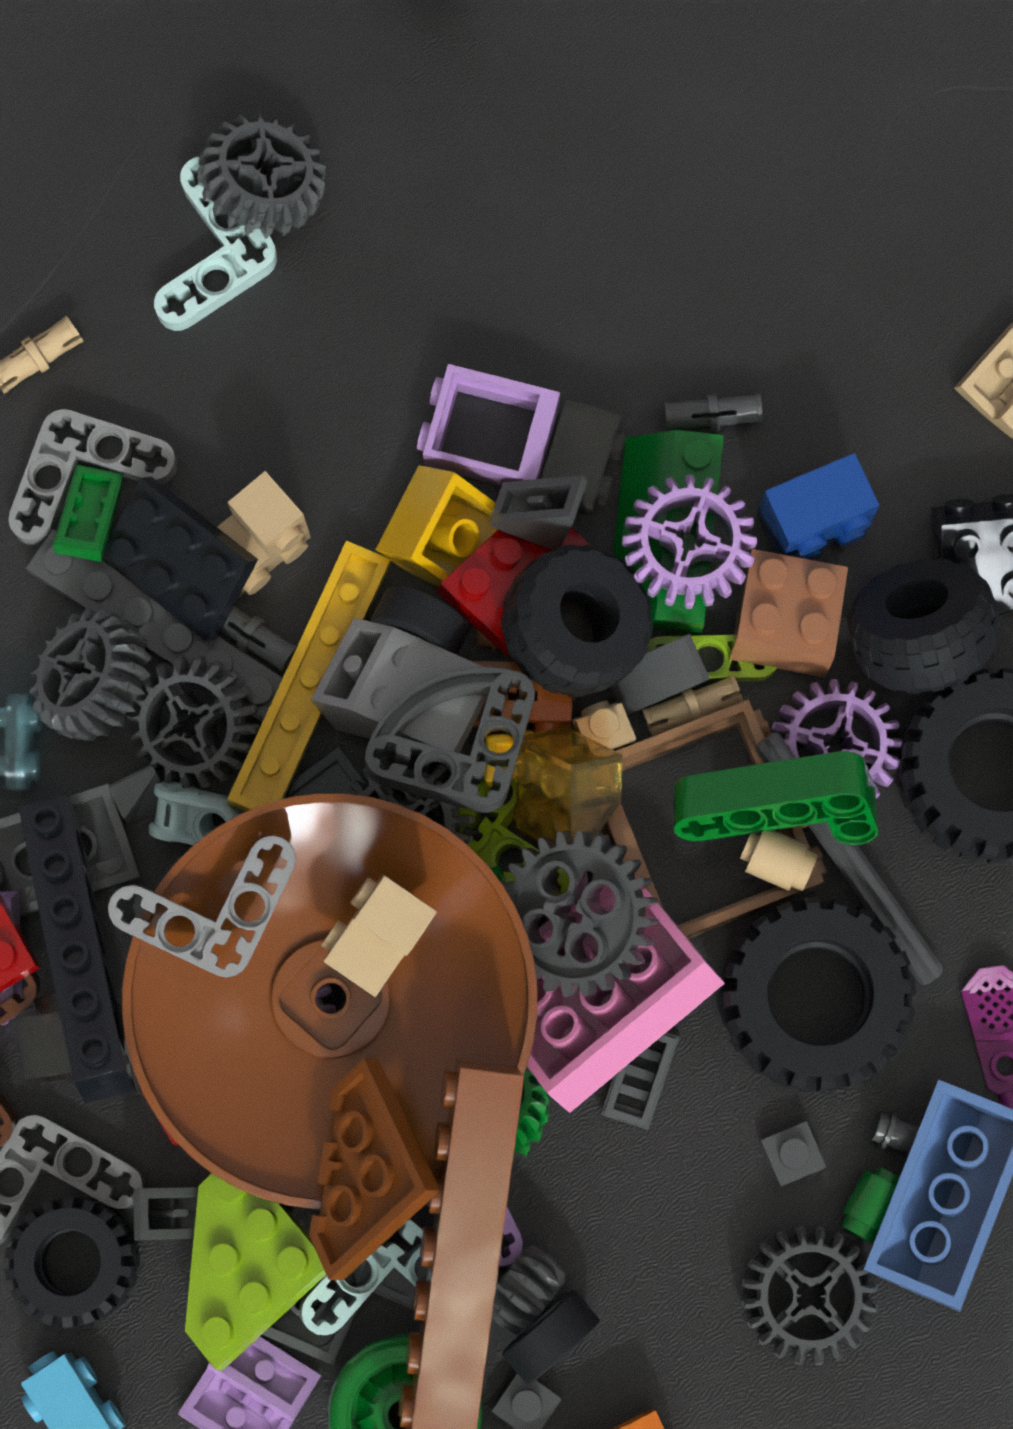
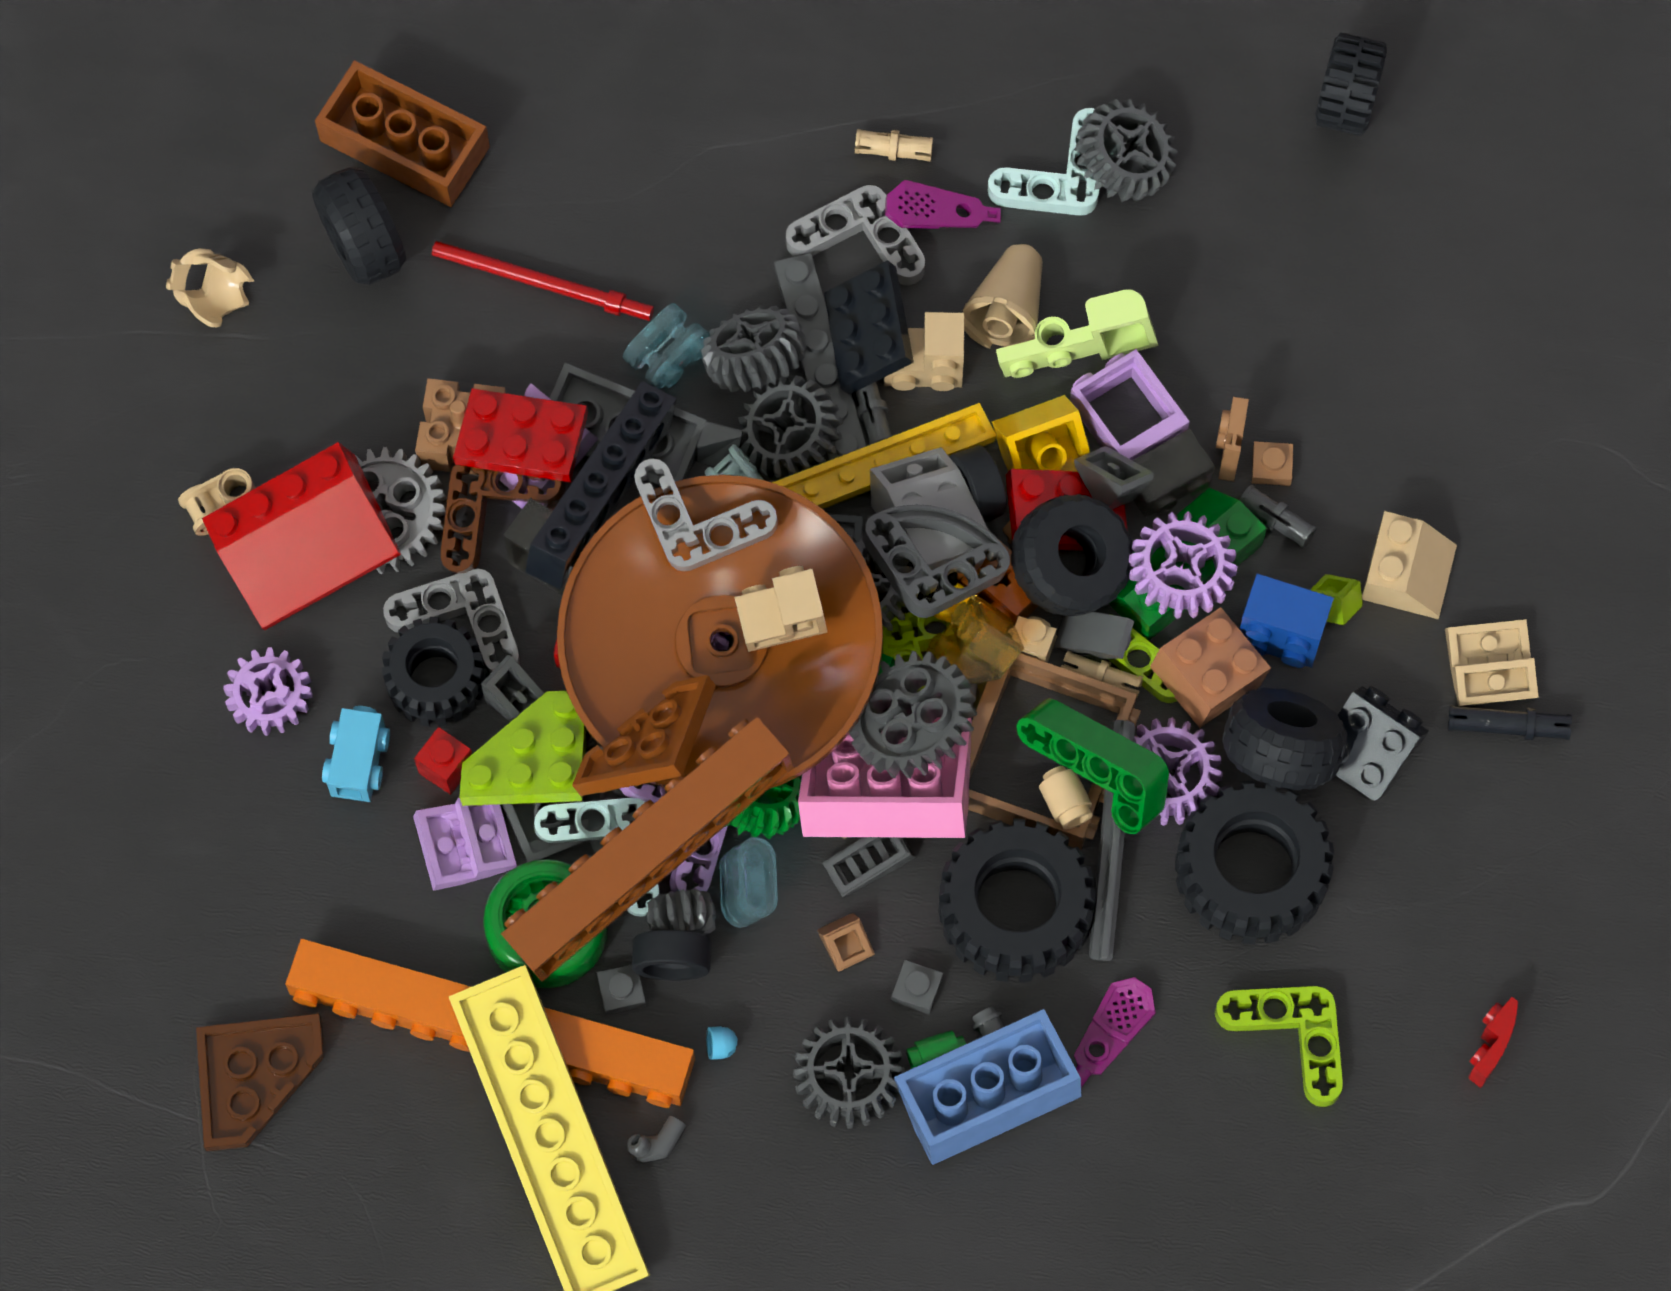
camera: 40 degrees right, 10 degrees down
(88, 513) = (840, 260): green plate -> none
(138, 377) = (943, 208): none -> magenta piece
(161, 1340) = (442, 760): none -> red brick
(284, 417) = (1007, 301): none -> tan cone
(409, 358) = (1116, 326): none -> yellowish green plate
(557, 1200) = (748, 882): none -> clear light blue brick
(611, 373) = (1230, 437): none -> medium nougat plate
(661, 364) = (1272, 463): none -> medium nougat plate
(666, 1373) = (720, 1042): none -> medium azure hinge
(688, 1169) = (846, 941): none -> medium nougat slope
(833, 440) = (1346, 597): none -> lime slope
(871, 358) = (1409, 566): none -> tan slope

